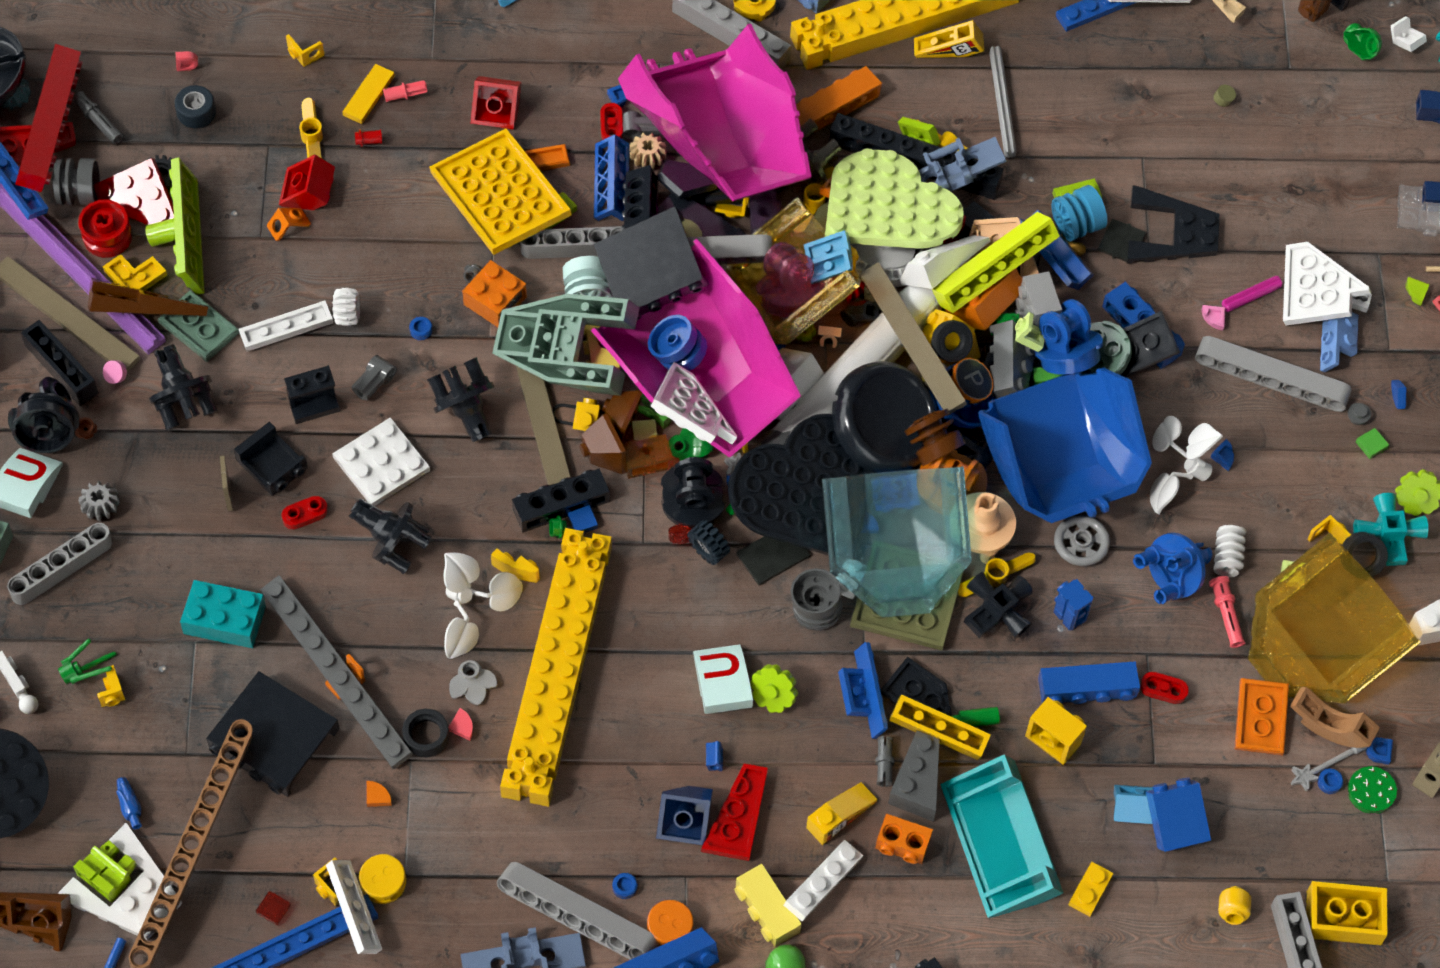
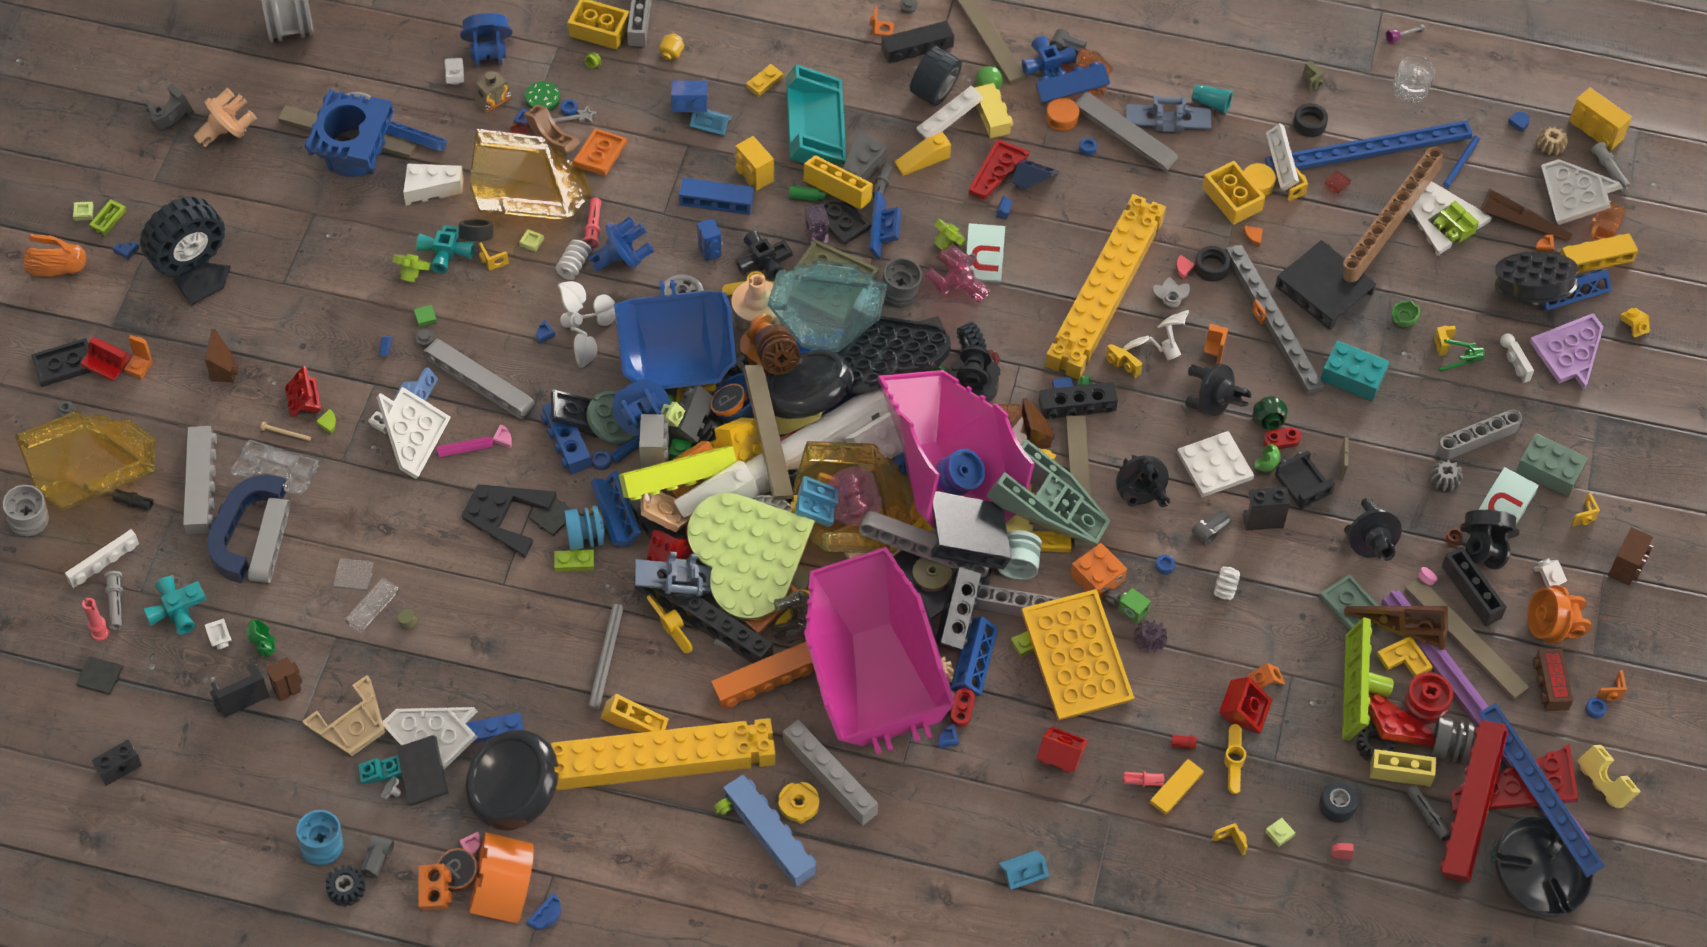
camera: 165 degrees left, 5 degrees down
(127, 147) = (1402, 768): none -> light yellow brick
(129, 803) = (1435, 263): blue piece -> none
(163, 710) = (1405, 314): none -> bright green hair
(253, 72) = (1280, 832): none -> yellowish green plate
(285, 326) = (1279, 586): white plate -> none
(319, 469) = (1270, 459): none -> bright green hair
(323, 535) = (1272, 411): none -> dark green plant
(403, 602) = (1216, 341): none -> orange panel
(413, 840) = (1233, 192): none -> yellow brick
(423, 237) = (1150, 636): none -> gear
(447, 267) = (1134, 605): none -> bright green brick
(549, 157) = (1027, 691): orange tile -> none
(690, 406) = (967, 402): white wing -> none
(747, 621) = (959, 275): none -> clear pink piece
(857, 920) = (935, 75): none -> black wheel
(906, 833) = (885, 129): orange brick -> none
(919, 130) = (690, 624): lime plate -> none
(946, 657) = (816, 223): none -> brick
(961, 350) = (737, 418): black tyre -> none
(973, 194) = (662, 544): none -> red bracket
(1096, 311) = (601, 460): none -> blue tile
(1164, 685) = (663, 184): red plate -> none
(1268, 104) = (372, 604): none -> clear plate
(1303, 133) = (353, 574): none -> clear piece
(1330, 861) = (593, 60): none -> lime plate
(1384, 724) = (519, 128): none -> clear red tile
(1408, 141) = (269, 540): none -> light grey beam

